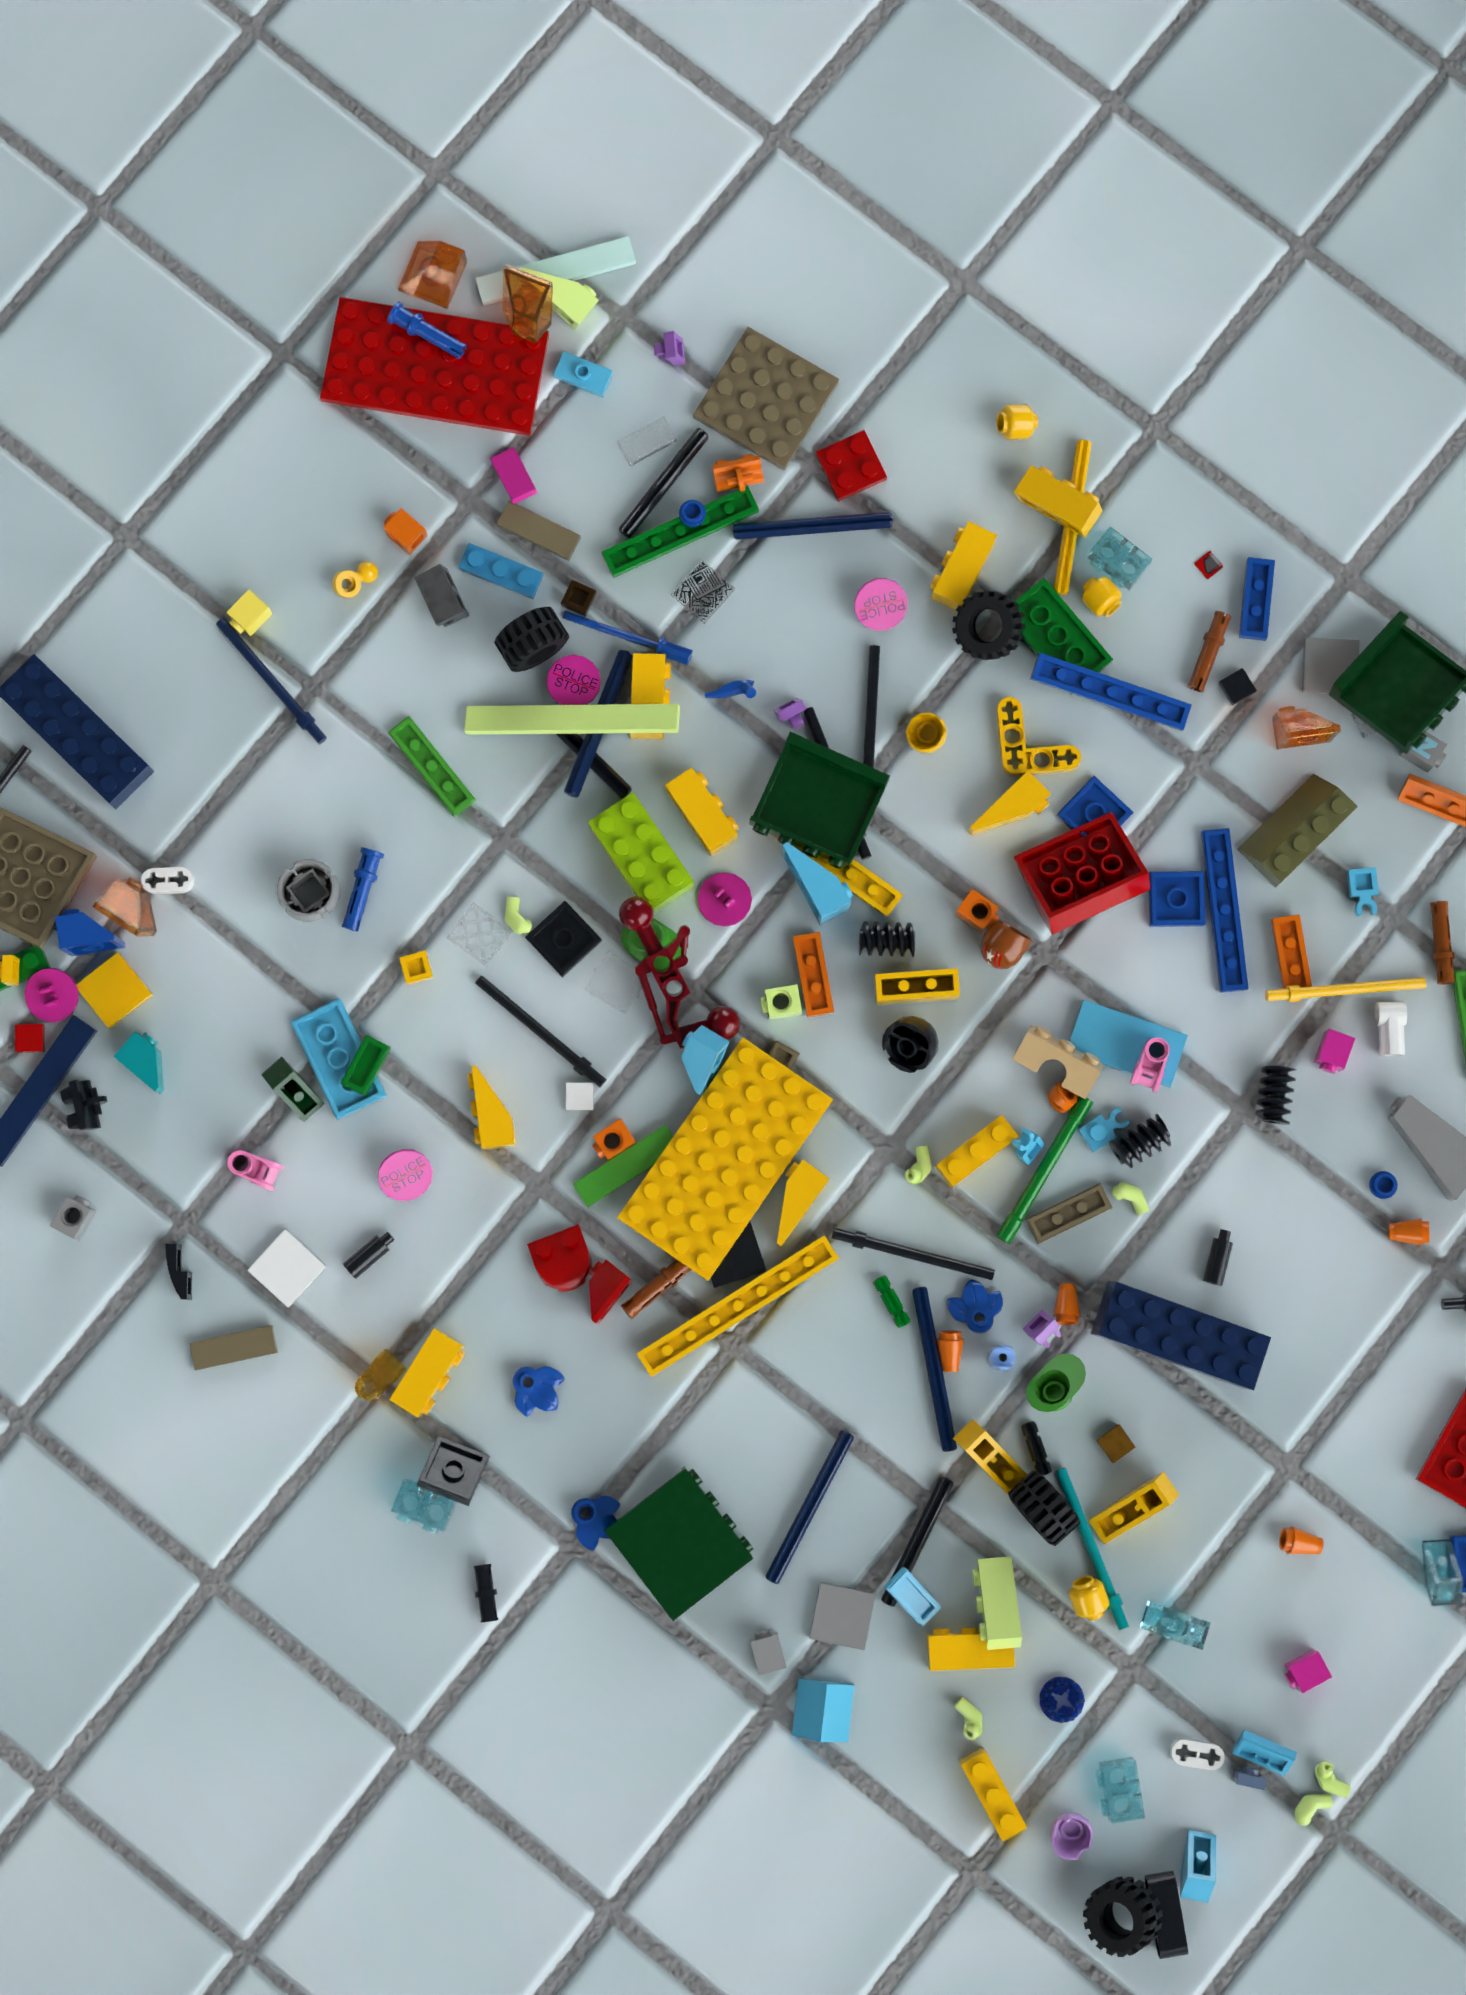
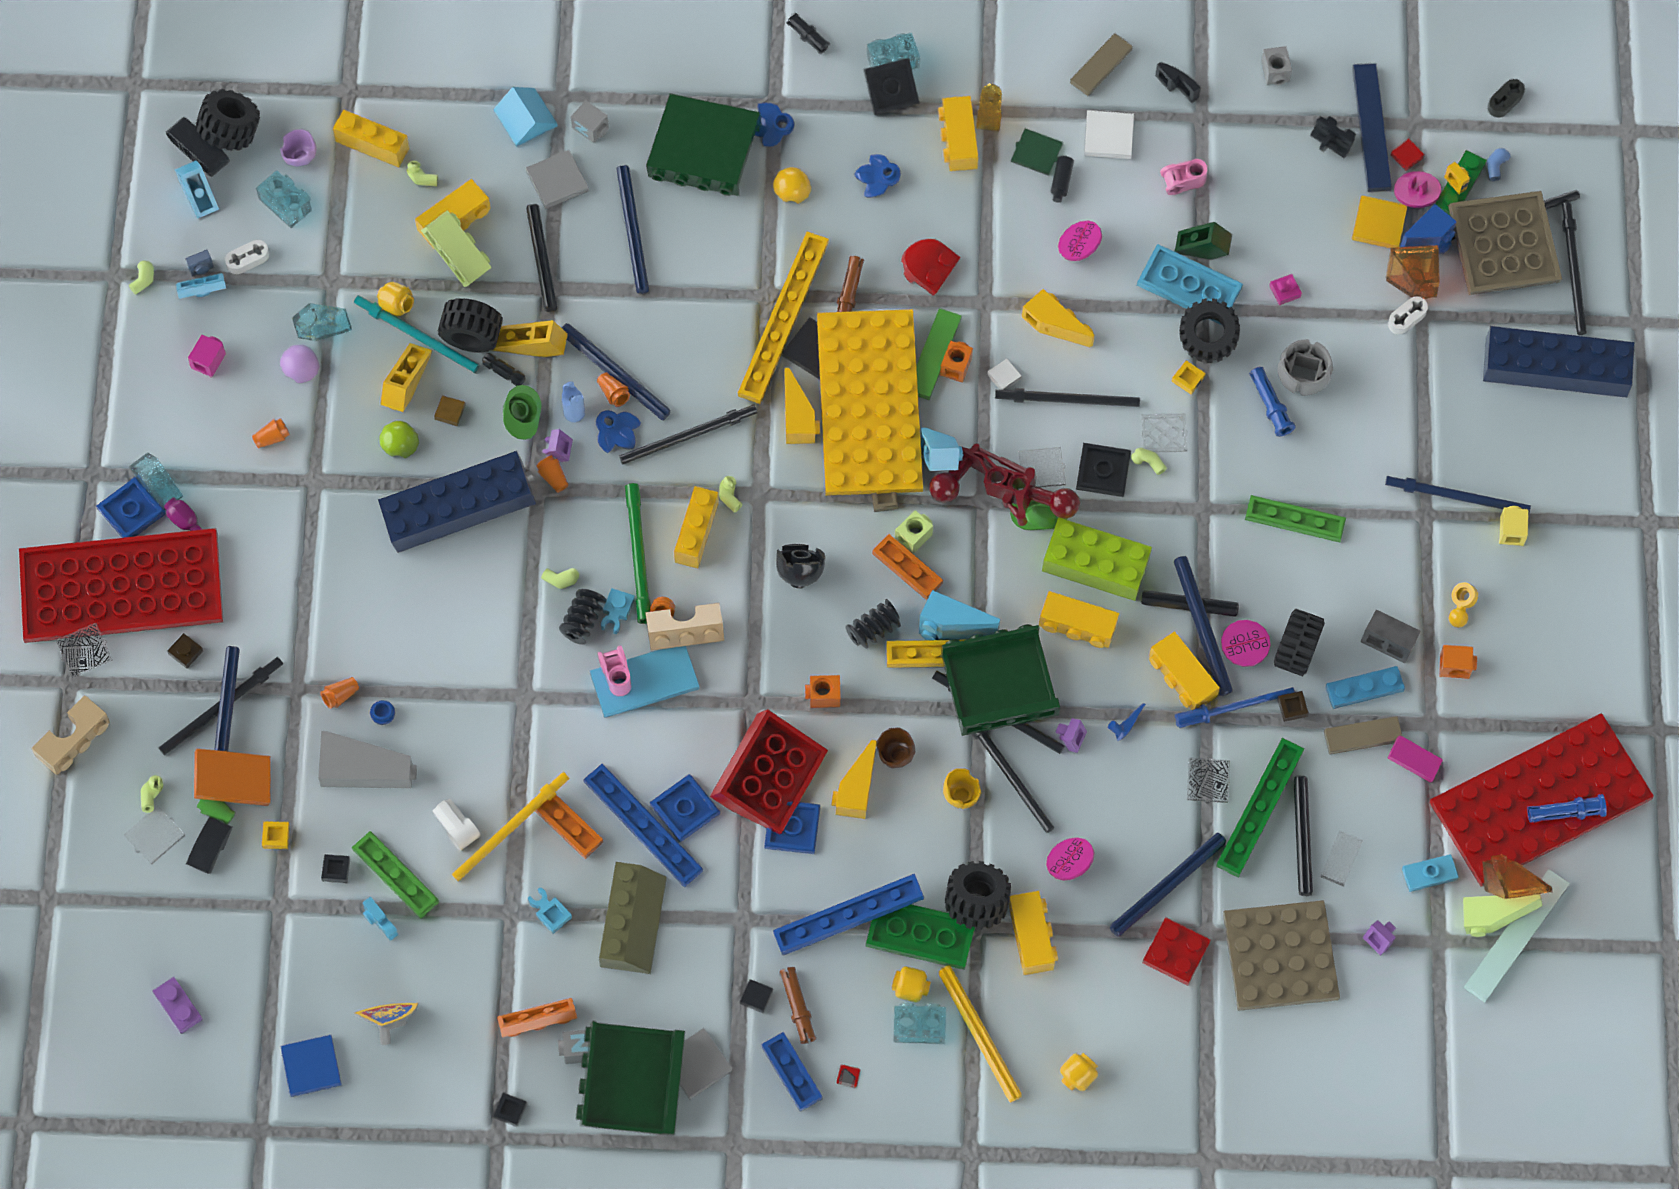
camera: 140 degrees right, 15 degrees down
(143, 1060) = (1317, 189): teal slope -> none
(255, 989) = (1285, 289): none -> dark pink tile
(365, 1065) = (1166, 288): green tile -> none
(367, 971) = (1215, 311): none -> black tyre
(367, 1303) = (1036, 151): none -> clear green piece
(434, 272) = (1603, 866): clear orange slope -> none
(572, 719) = (1222, 610): yellowish green tile -> none
(605, 1288) = (883, 262): red slope -> none
(625, 1440) = (792, 185): none -> yellow hair
(692, 513) = (1262, 820): blue plate -> none
(724, 899) = (1012, 577): dark pink piece -> none
(737, 473) = (1252, 876): orange hips -> none
(891, 1301) = (679, 393): green axle -> none
(912, 1597) = (518, 219): medium azure tile -> none
(916, 986) = (826, 605): yellow brick -> none
(955, 811) = (895, 747): none -> reddish brown hair
(1004, 945) = (786, 671): dark orange helmet -> none
(1027, 755) = (875, 831): yellow beam -> none
(1028, 1146) = (662, 555): medium azure plate -> none
(1048, 1702) = (374, 233): clear blue gear -> none
(1058, 500) = (999, 1028): yellow brick -> none
(1069, 1213) = (597, 537): dark tan tile -> none
(1183, 1448) = (399, 439): none -> lime hair
(1218, 1259) = (466, 578): black cylinder -> none
(1223, 1599) = (299, 363): none -> lavender hair
(1275, 1094) = (506, 715): black piece -> none
(1302, 728) = (684, 991): clear orange slope -> none
(1328, 1781) = (141, 300): yellowish green arm -> none
(1334, 1051) = (487, 777): dark pink brick -> none
(1438, 1517) = (181, 515): none -> magenta plant
(1442, 942) = (455, 906): dark orange pin -> none

